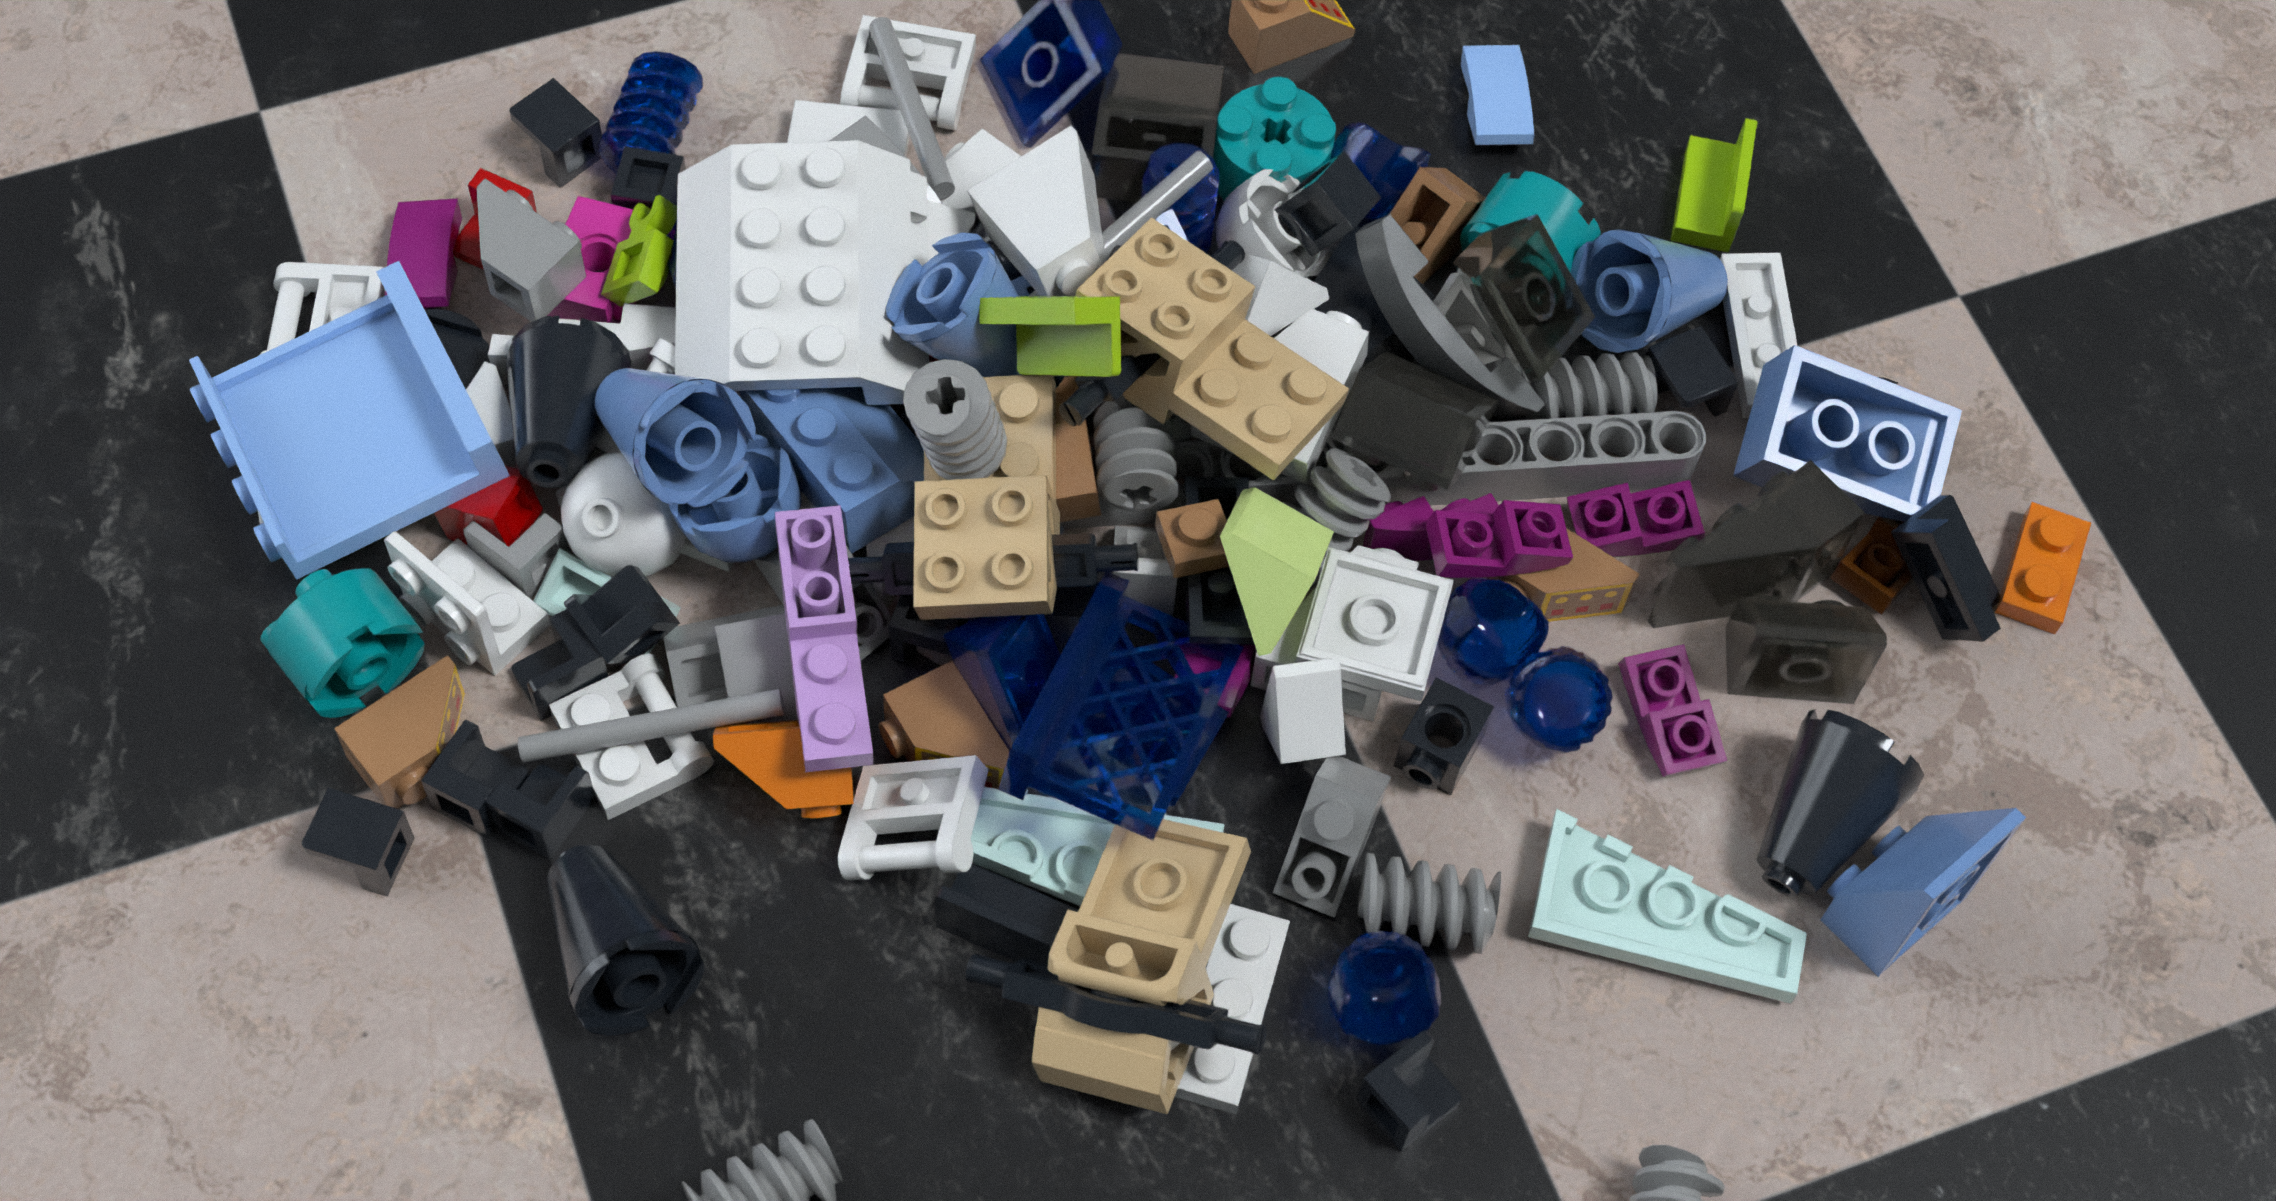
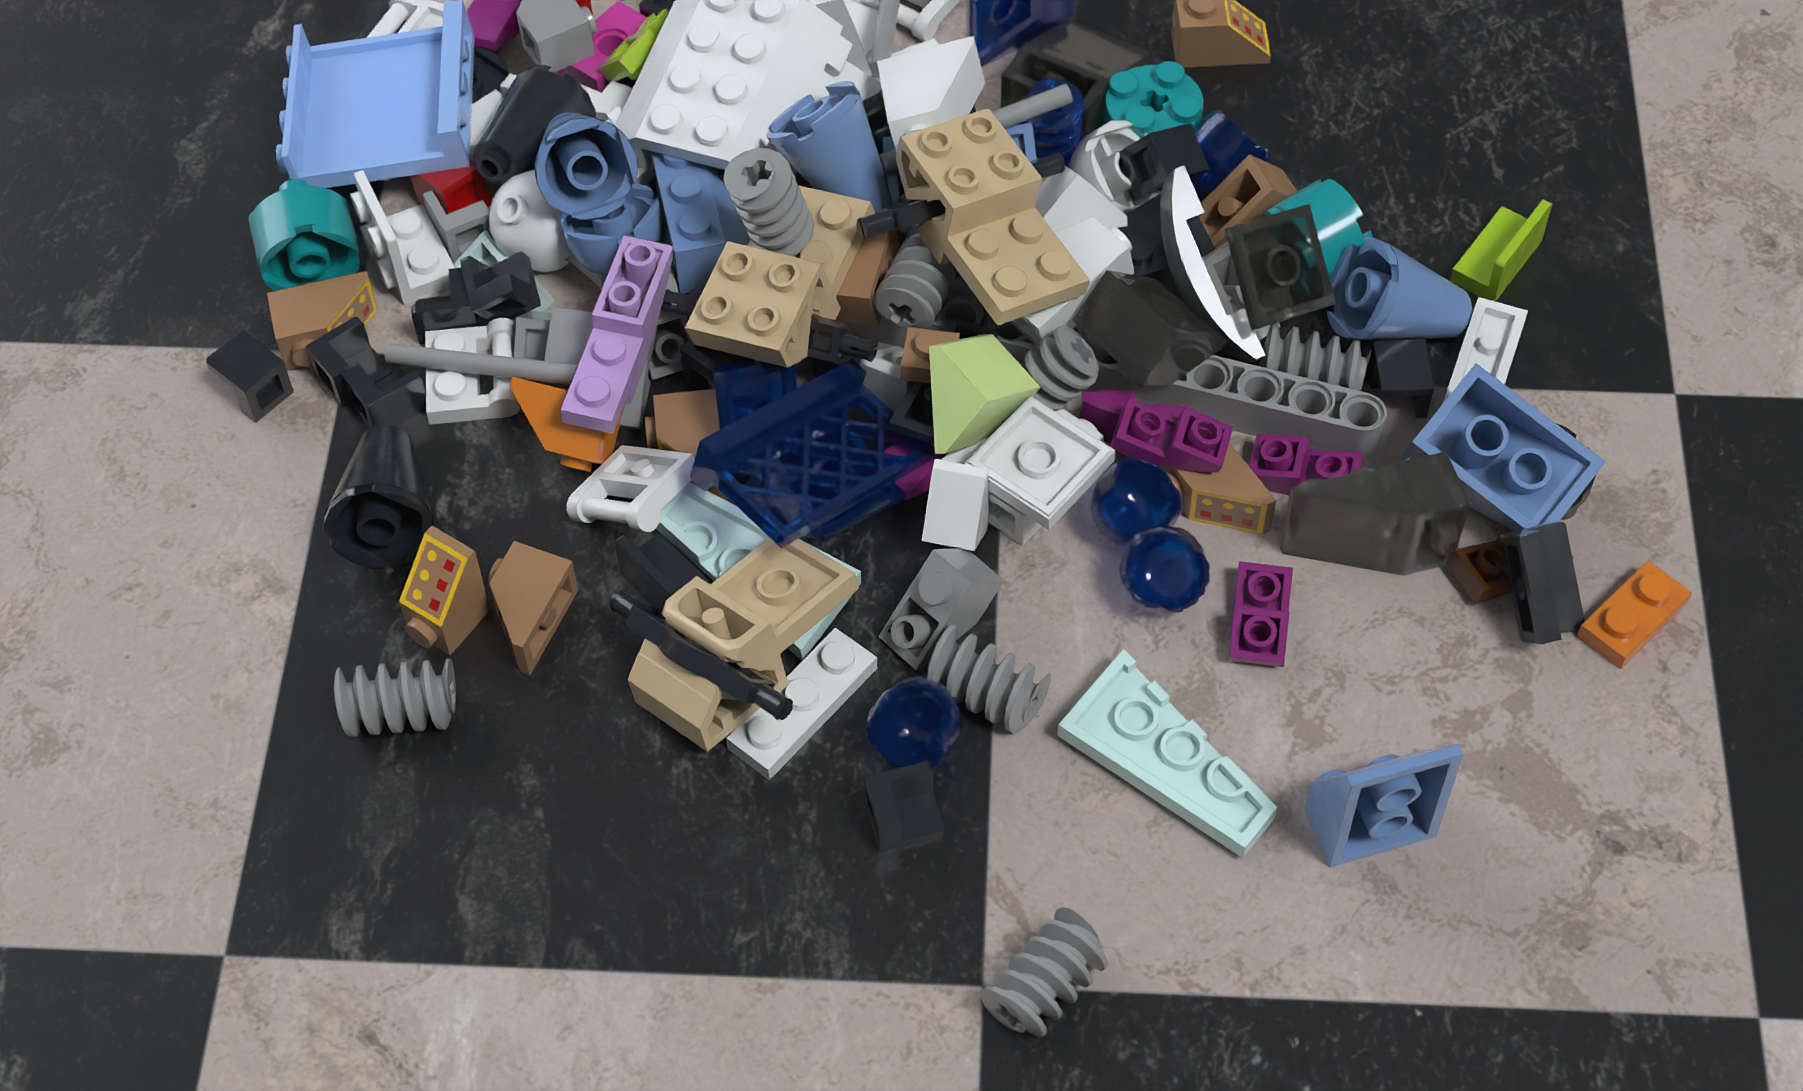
camera: 30 degrees right, 5 degrees down
(758, 1038) = (443, 593): none -> medium nougat slope
(855, 1004) = (531, 599): none -> medium nougat slope
(1061, 333) = (882, 165): lime panel -> none
(1449, 714) = (1064, 550): black brick -> none
(1498, 95) = (1358, 133): light blue slope -> none
(1801, 649) = (1382, 601): clear smoke slope -> none
(1831, 800) = (1347, 717): black cone -> none

